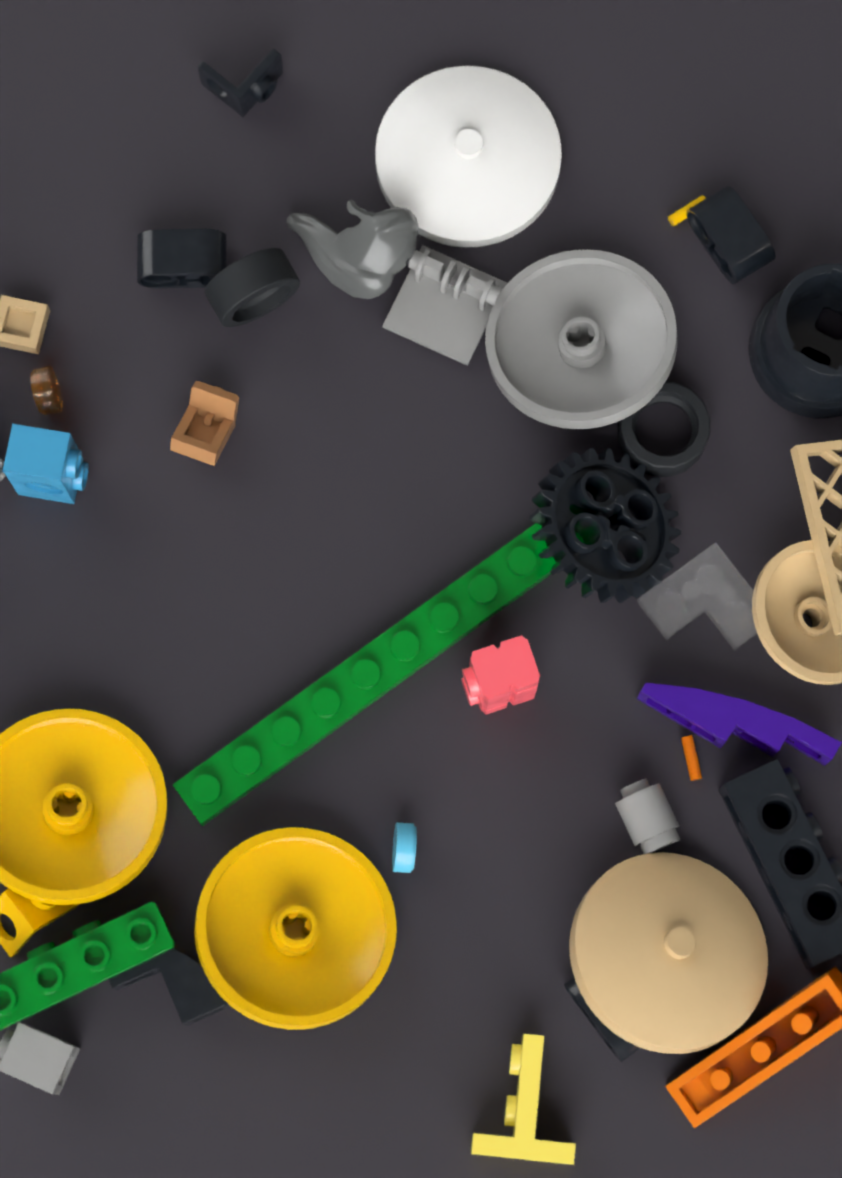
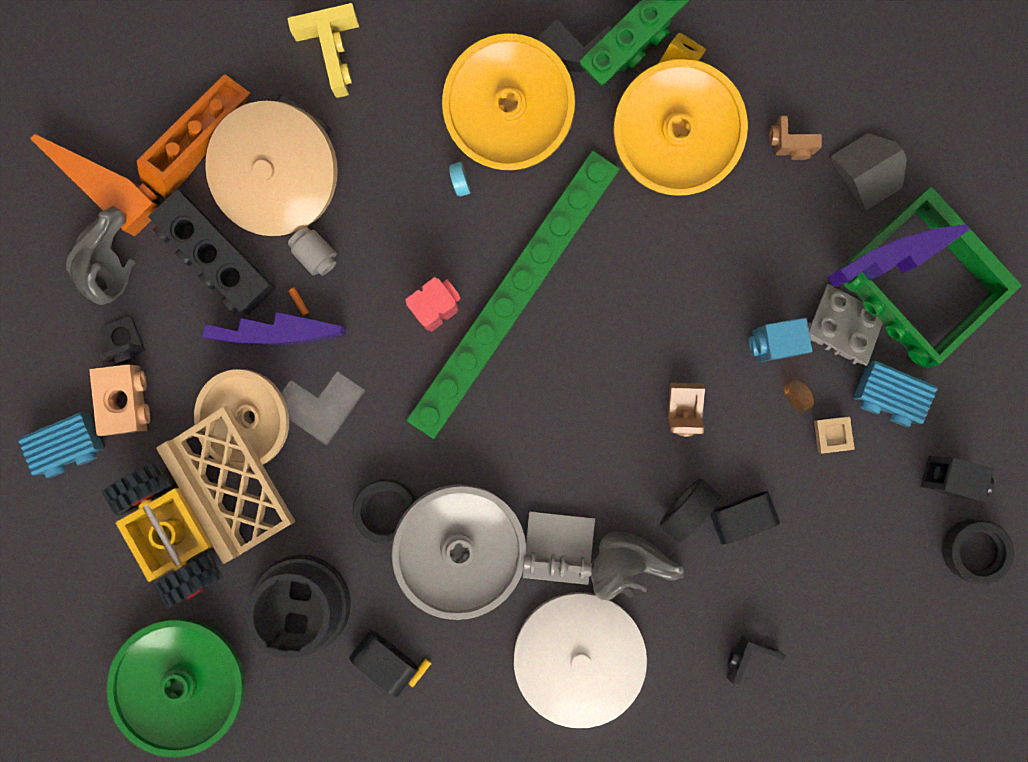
camera: 160 degrees right, 10 degrees up
(605, 525) = (403, 458): black gear -> none

